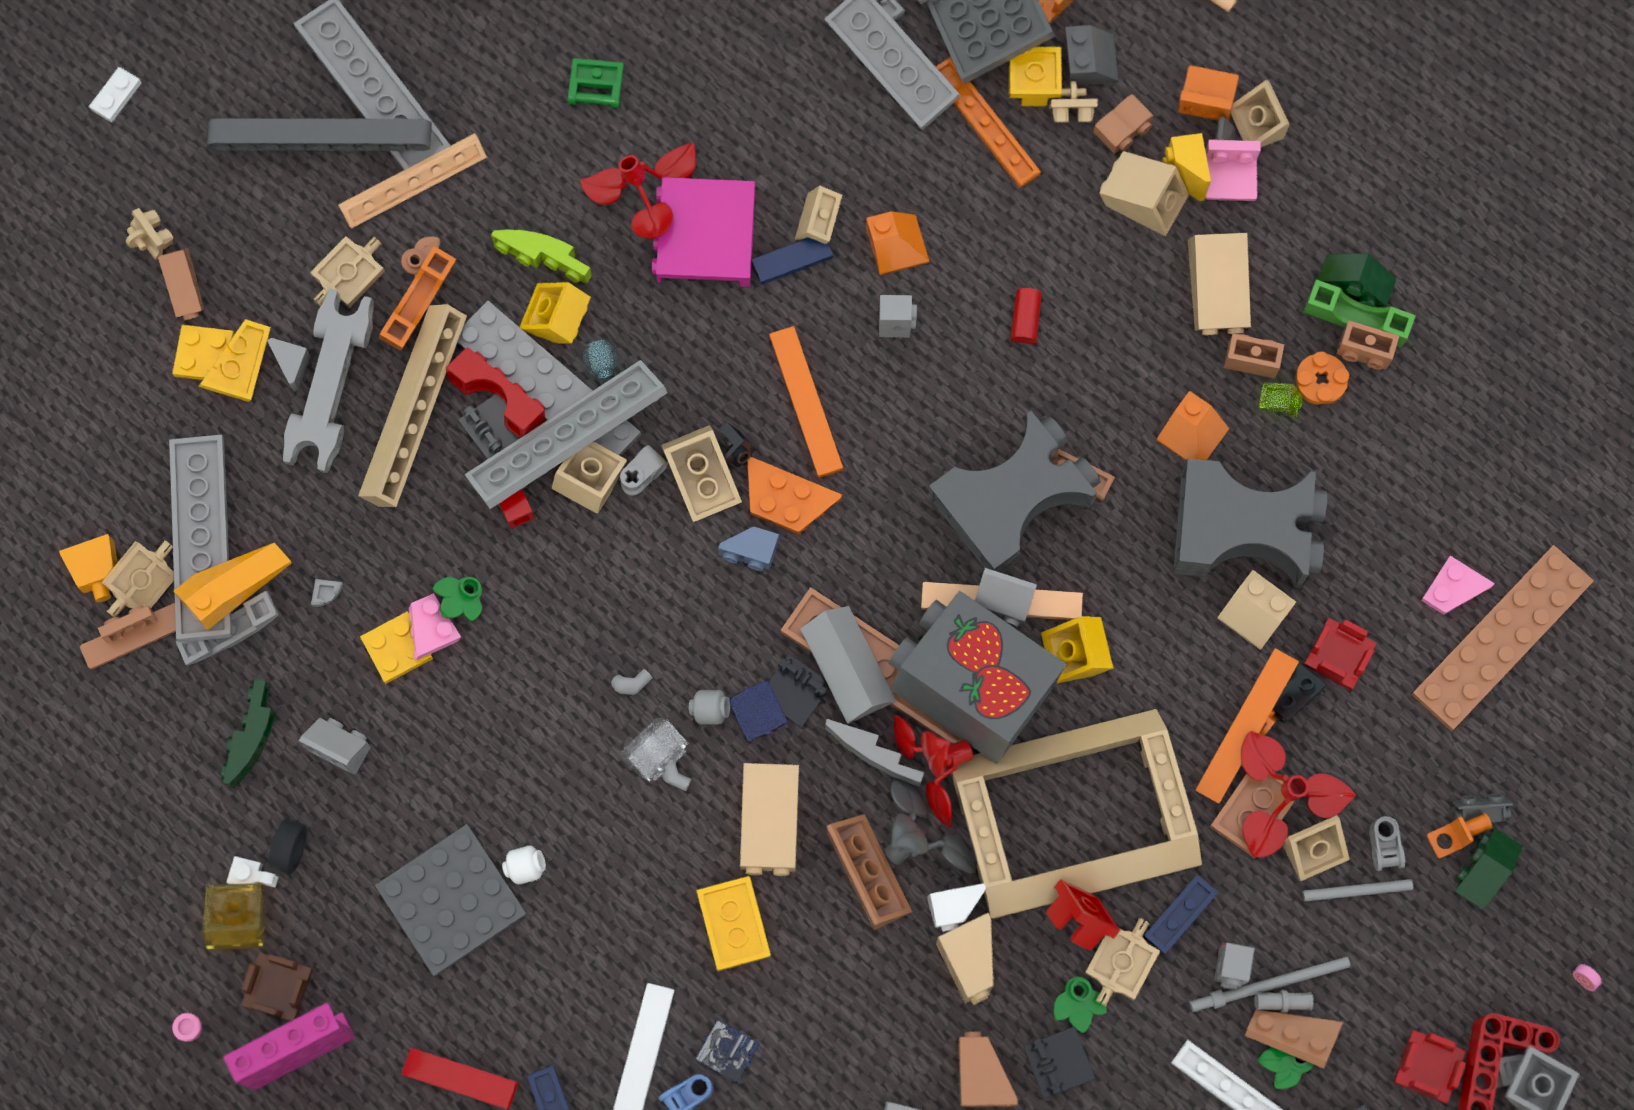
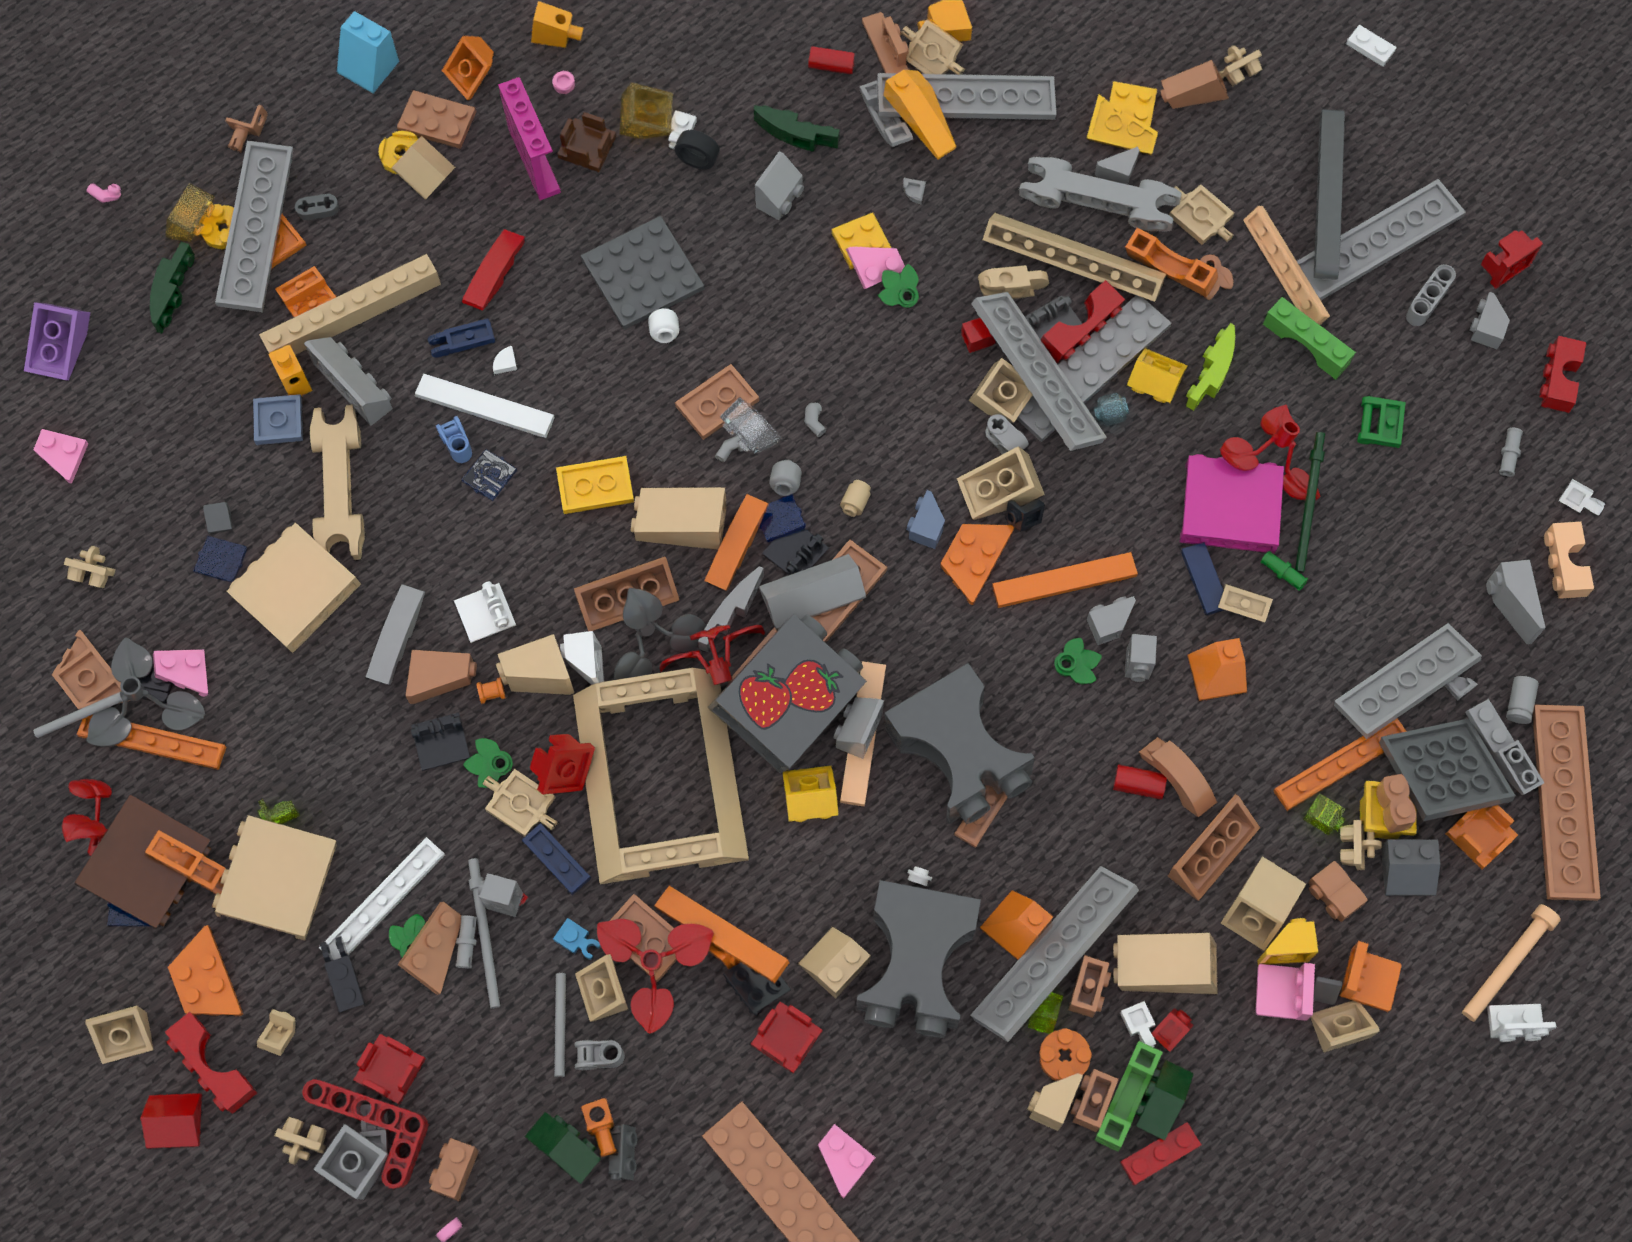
camera: 95 degrees right, 5 degrees down
(113, 1045) = (553, 26): none -> light orange torso
(152, 699) = (831, 60): none -> red brick
(432, 24) = (1435, 287): none -> light grey beam
(447, 474) = (1014, 280): none -> tan piece
(485, 172) = (1329, 351): none -> bright green arch
(579, 1050) = (504, 361): none -> white tile
(618, 794) = (712, 398): none -> nougat plate
(651, 143) = (1316, 458): none -> dark green bar
(729, 628) = (855, 498): none -> tan brick
(777, 178) = (1284, 570): none -> green pin
(789, 751) = (736, 542): none -> orange slope
(852, 350) = (1109, 621): none -> light grey slope
(899, 381) = (1081, 662): none -> green plate
(900, 1032) = (485, 612): none -> white hinge
(995, 1011) = (491, 690): none -> orange bush
(1018, 273) = (1182, 774): none -> nougat arch
(1031, 62) = (1393, 796): none -> nougat brick
(1044, 136) = (1325, 814): none -> clear neon green brick
(1090, 243) = (1214, 849): none -> nougat slope
(1155, 531) = (919, 876): none -> white plate
(1233, 394) = (1054, 953): none -> light grey plate
(1263, 886) = (574, 937): none -> dark azure plate
(1280, 309) = (1139, 1021): none -> white plate
(1283, 276) = (1172, 1029): none -> red bracket
(1375, 380) = (1054, 1101): none -> tan slope
(1408, 287) = (1160, 1153): none -> red plate
(1527, 979) = (454, 1169): none -> nougat brick

